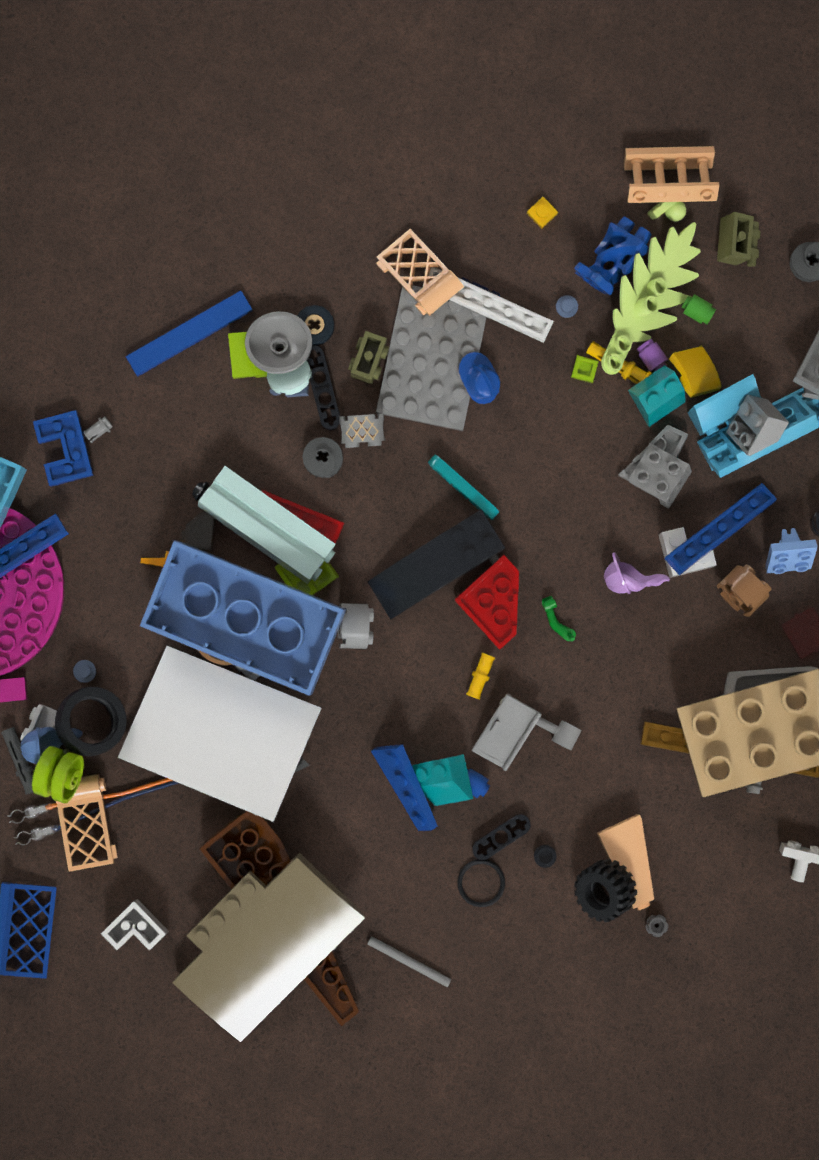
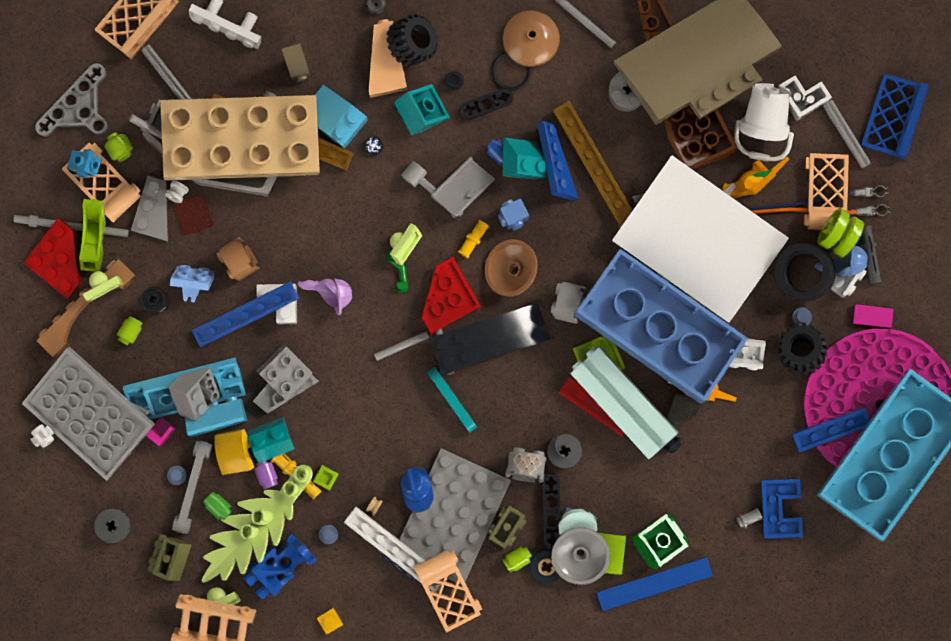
camera: 165 degrees left, 0 degrees up
(75, 896) = (846, 134): none -> light grey axle
(76, 651) = (802, 334): none -> black tyre
(131, 613) = (750, 355): none -> white bracket
(172, 889) = (766, 119): none -> white piece
(173, 816) = (753, 180): none -> light orange animal
(191, 380) = (660, 541): none -> green slope
(349, 325) = (517, 559): none -> lime brick
(351, 880) = (618, 97): none -> light grey brick
(362, 795) = (593, 162): none -> pearl gold plate
(439, 646) = (502, 266): none -> medium nougat dish
(441, 712) = (513, 214): none -> medium blue brick
(472, 911) = (528, 50): none -> medium nougat dish
(523, 348) = (374, 505): none -> tan bush
(536, 534) = (402, 345): none -> light grey bar
(558, 652) = (404, 243): none -> yellowish green tile
(575, 813) = (421, 109): none -> teal slope
(620, 758) = (373, 145): none -> black tile
(671, 782) = (337, 117): none -> medium azure slope
(733, 282) = (201, 451): none -> light grey piece
(733, 832) = (296, 63): none -> dark tan slope
(752, 334) = (176, 475): none -> sand blue plate
(782, 377) = (160, 431): none -> dark pink panel

